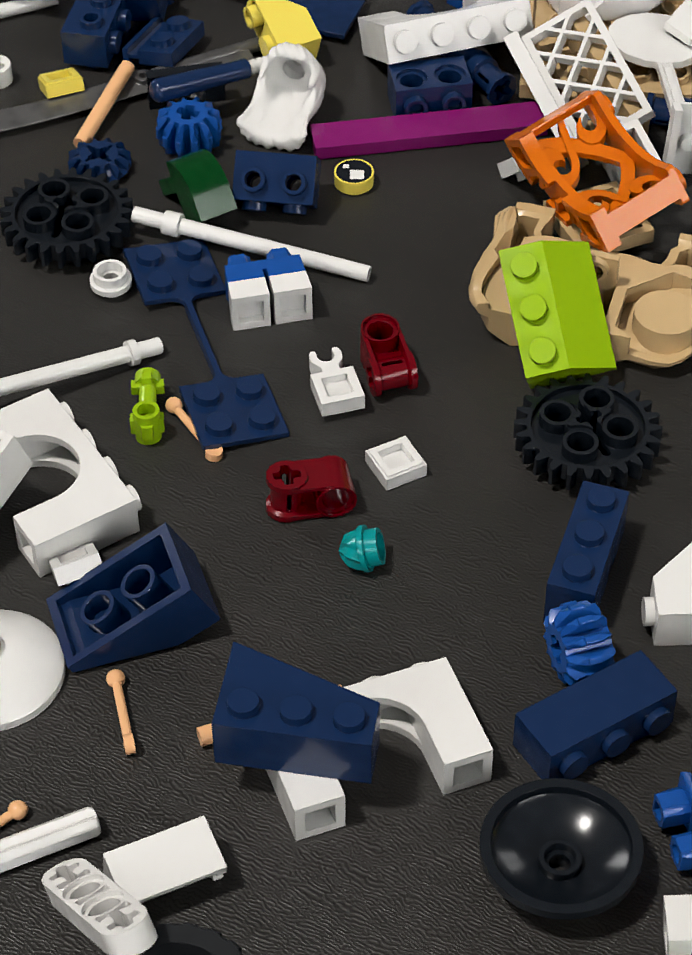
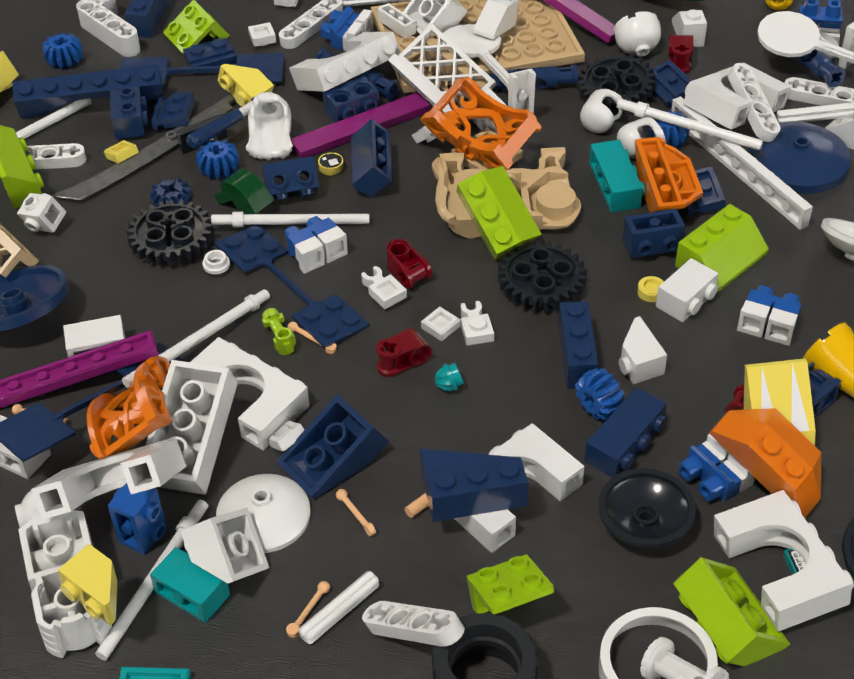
camera: 20 degrees left, 0 degrees up
(105, 103) = (156, 157): light nougat bar -> none
(166, 860) = (432, 584): white hinge -> none
(274, 897) = (507, 585): none -> lime bracket
(411, 182) = (371, 158): none -> dark blue brick
(448, 481) = (475, 325): none -> white plate

